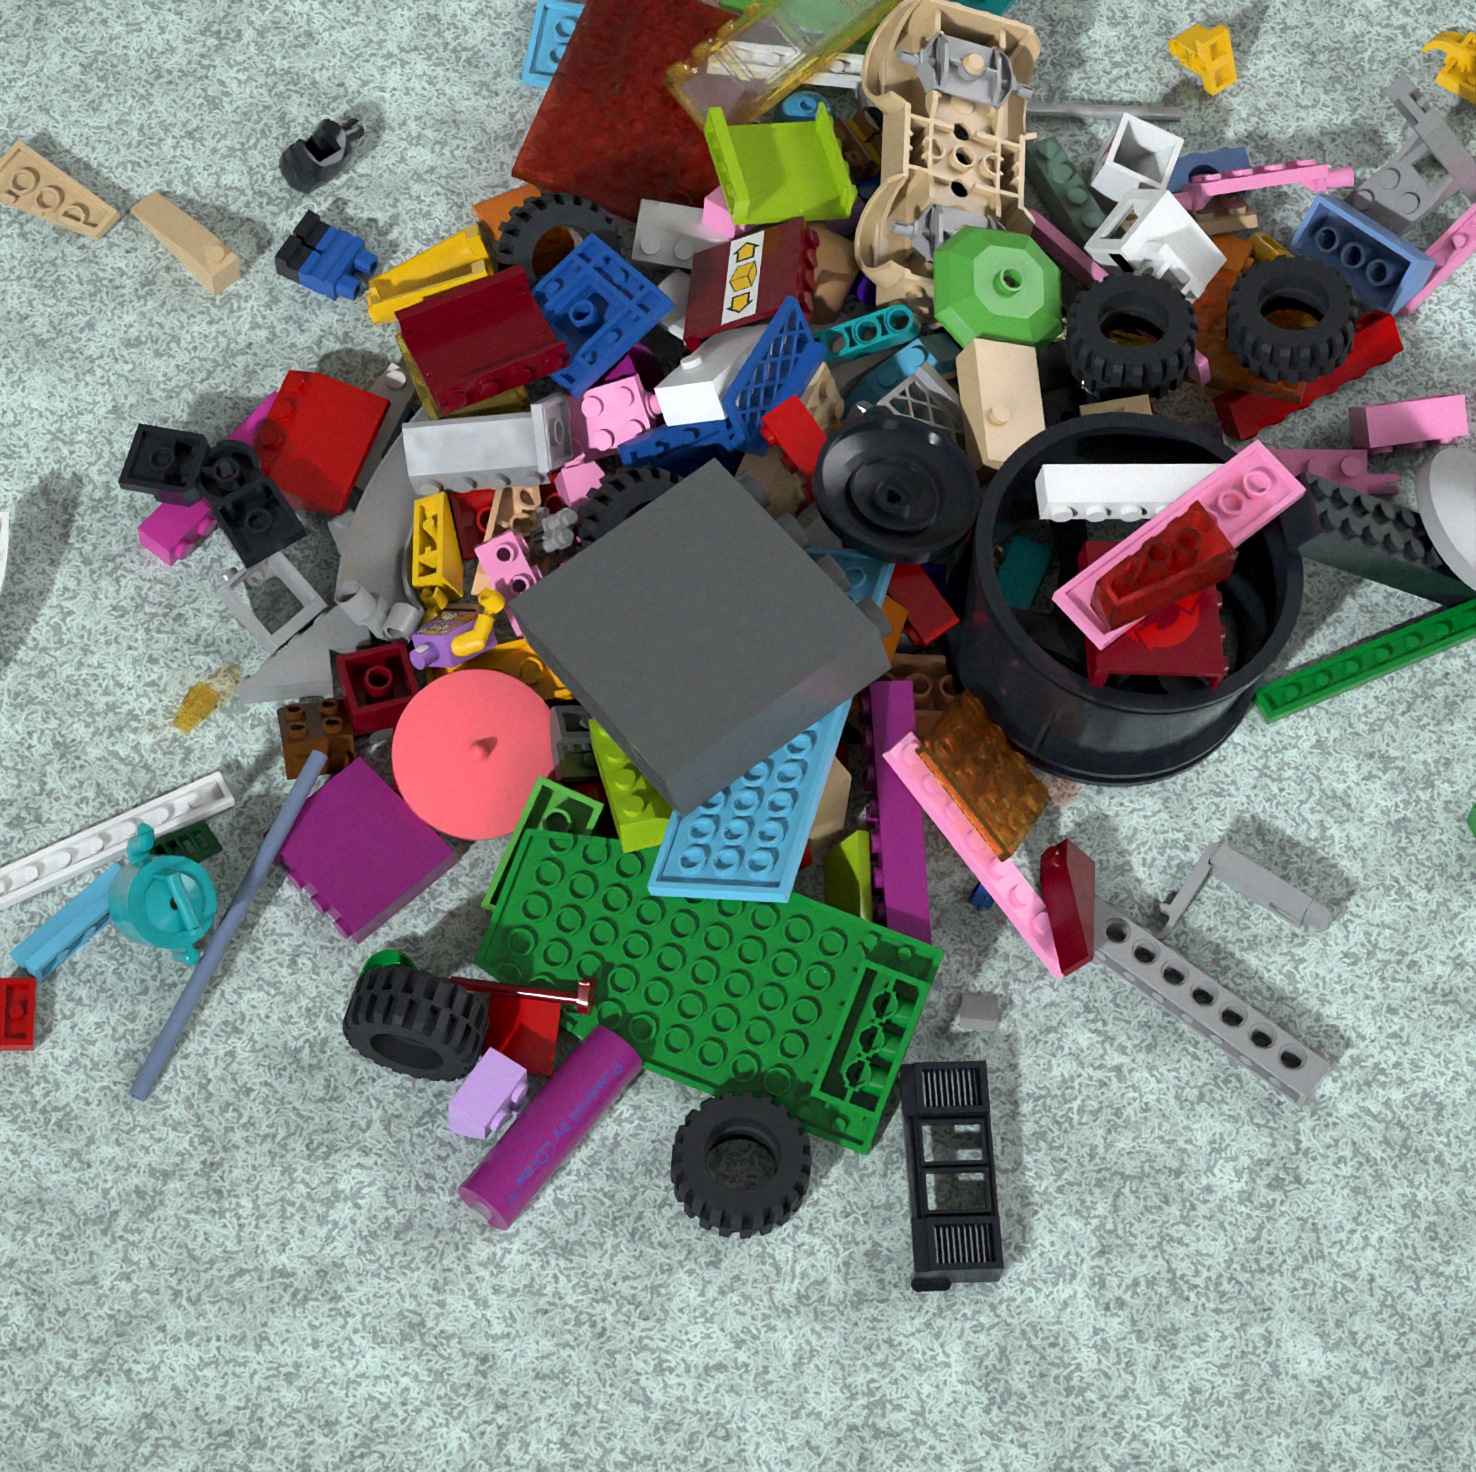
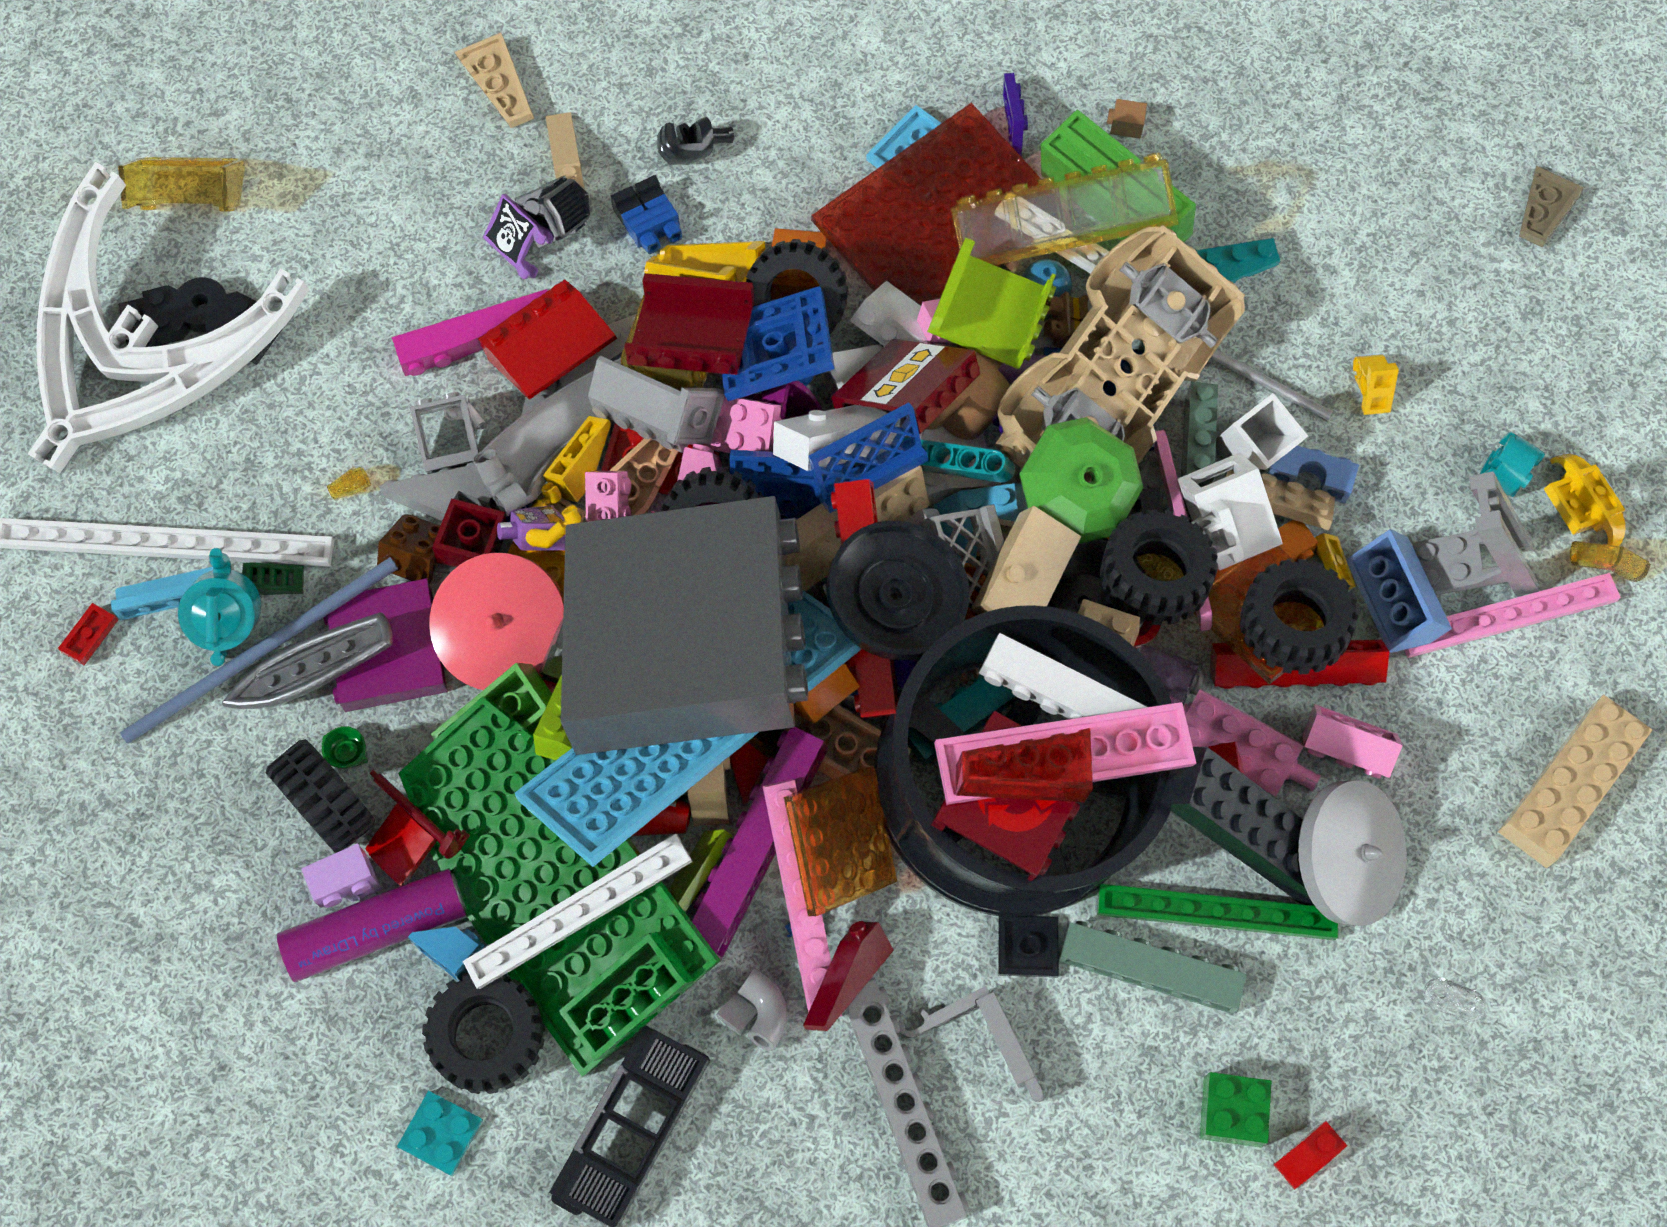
camera: 35 degrees right, 5 degrees up
(185, 469) = (465, 331): black plate -> none
(192, 351) = (512, 234): none -> flag
(223, 303) = (558, 206): none -> black piece
(298, 906) = (311, 663): none -> flat silver piece
(552, 531) = (655, 487): light grey piece -> none
(650, 1106) = (447, 948): none -> dark azure slope
(758, 1291) = (440, 1133): none -> teal plate
(772, 980) = (577, 911): none -> white plate
(1007, 984) = (770, 1009): none -> light grey cylinder
(1220, 790) = (1028, 946): none -> black tile
(1305, 172) = (1357, 496): bright pink plate -> none
(1353, 742) = (1153, 967): none -> sand green brick
(1387, 63) = (1513, 462): none -> teal brick

